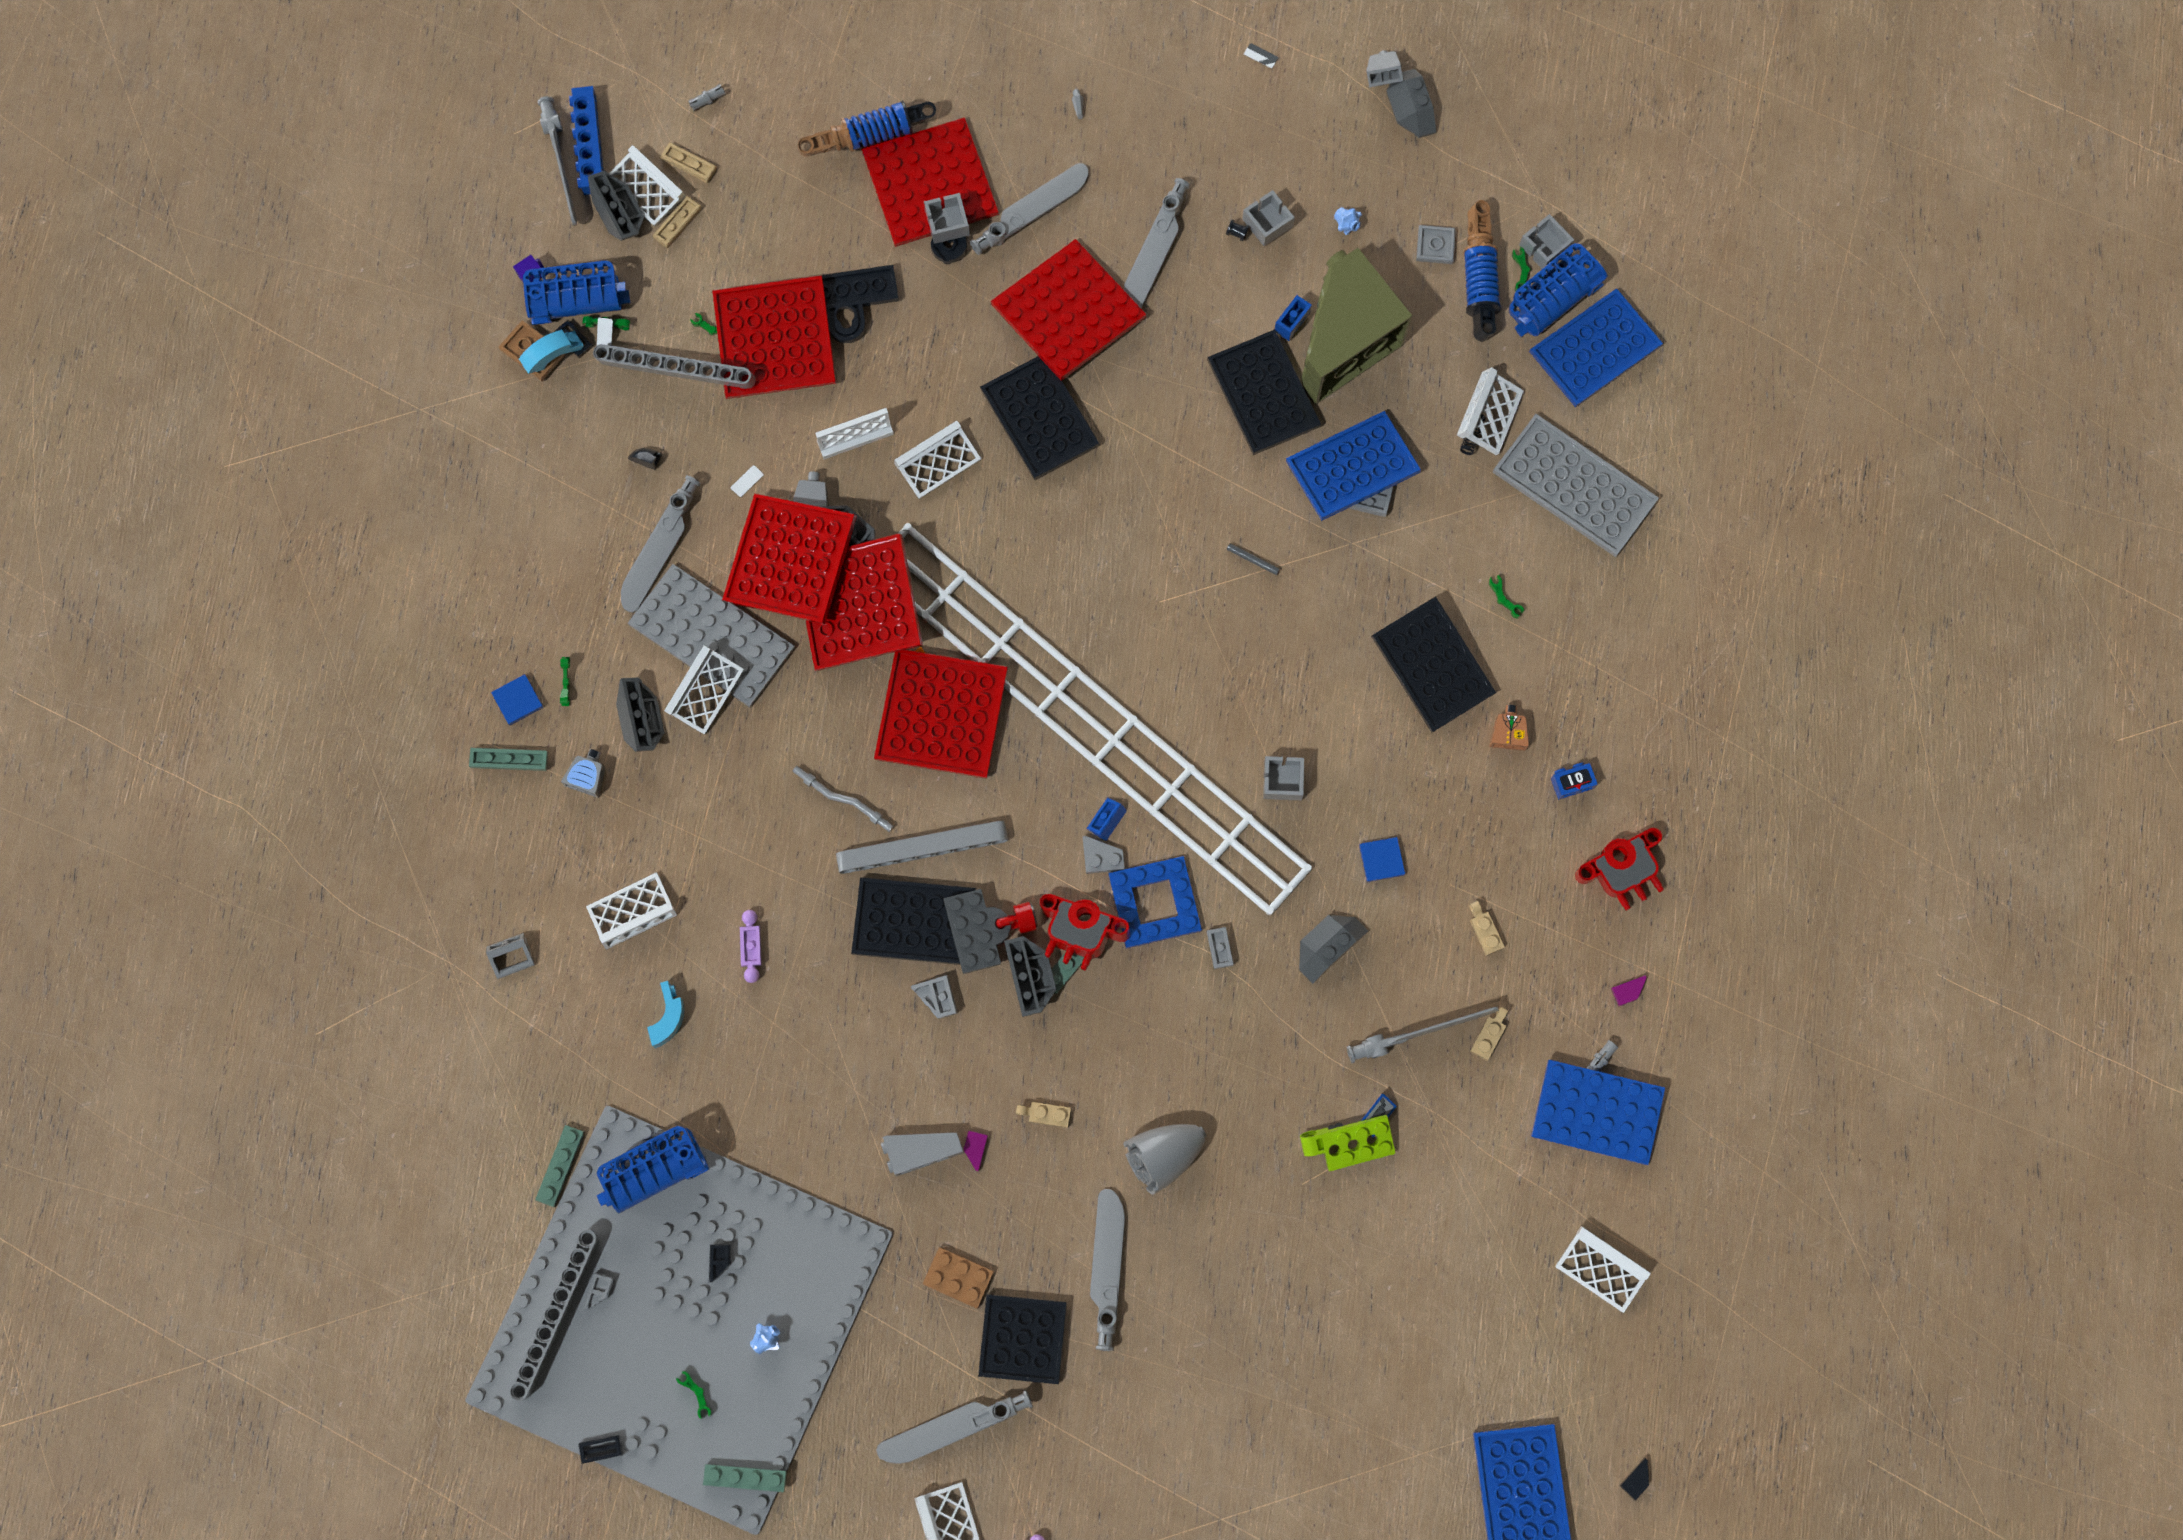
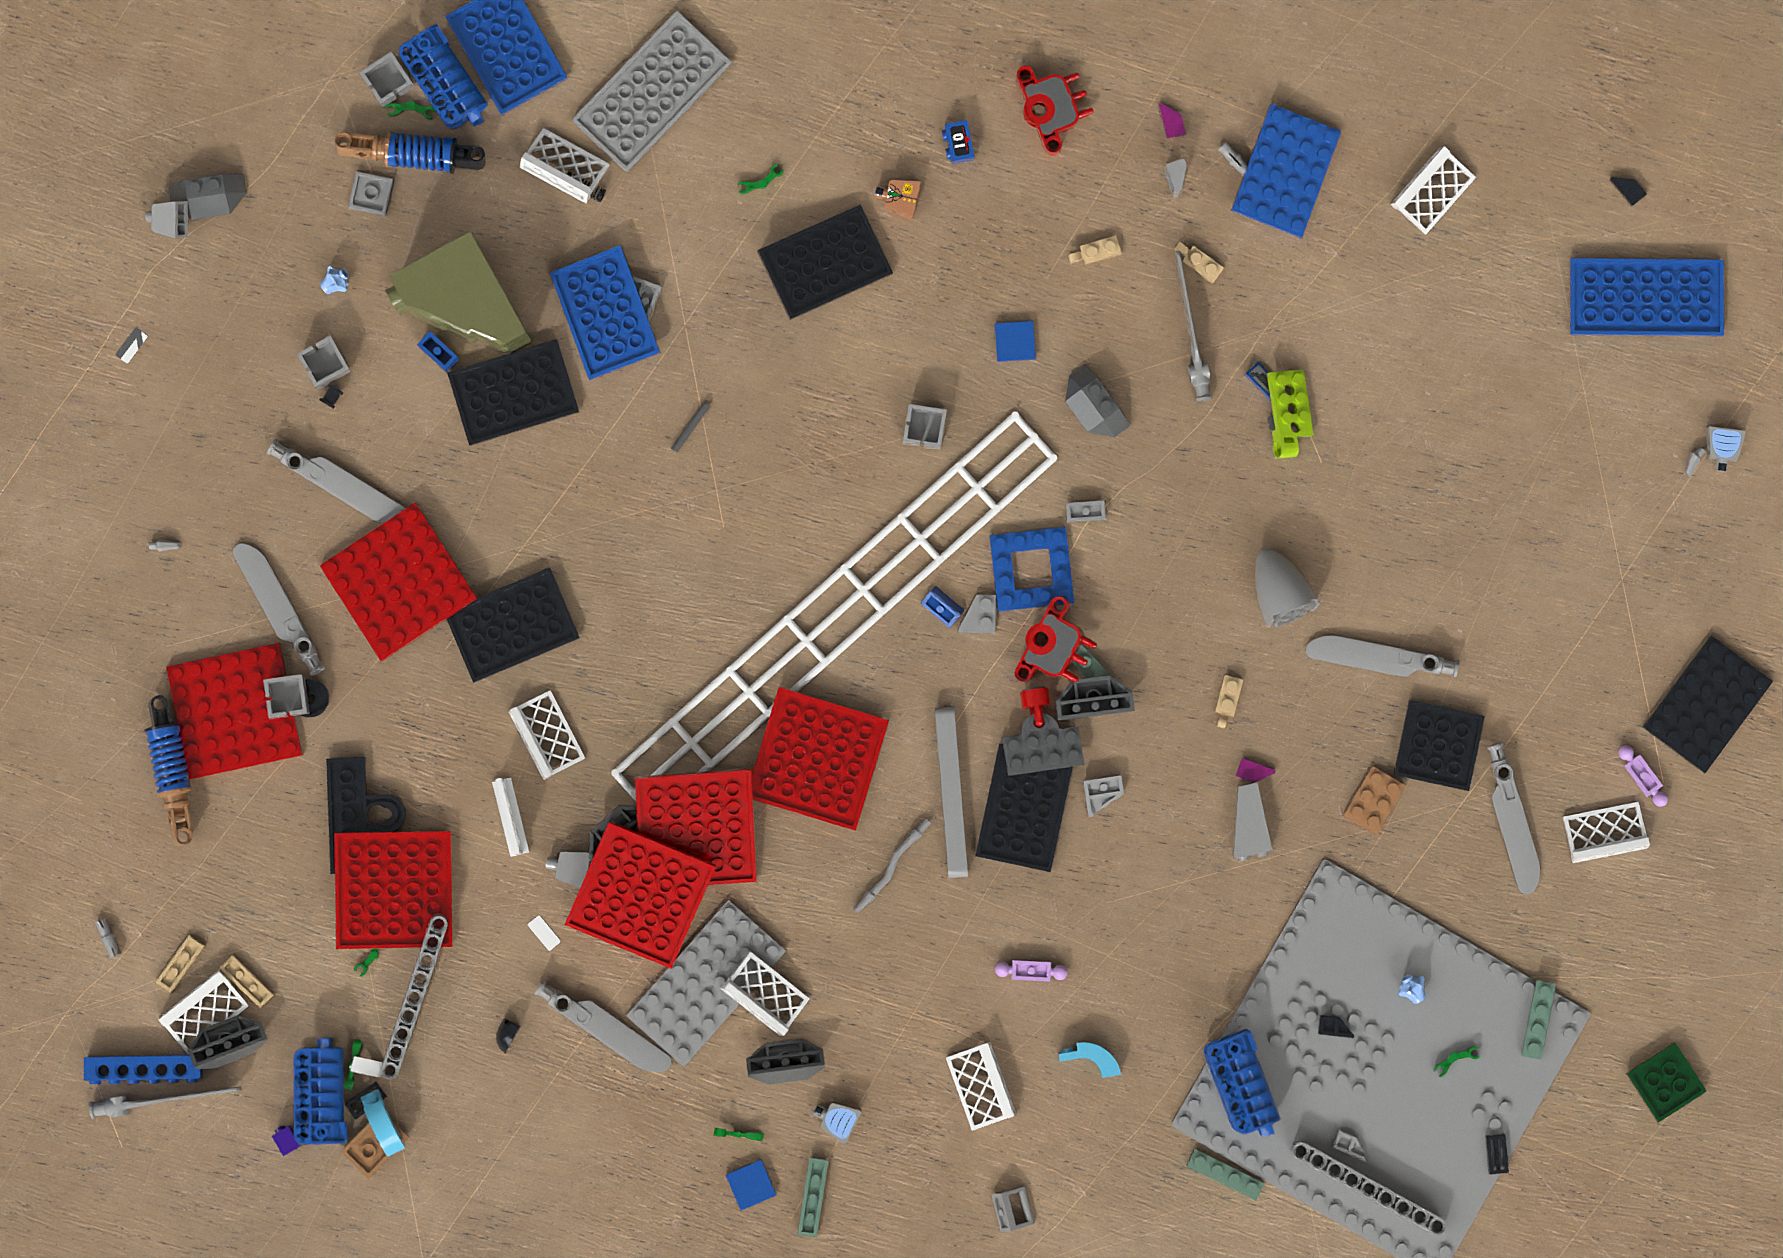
camera: 85 degrees left, 10 degrees up
(1574, 999) = (1175, 176): none -> light grey tile

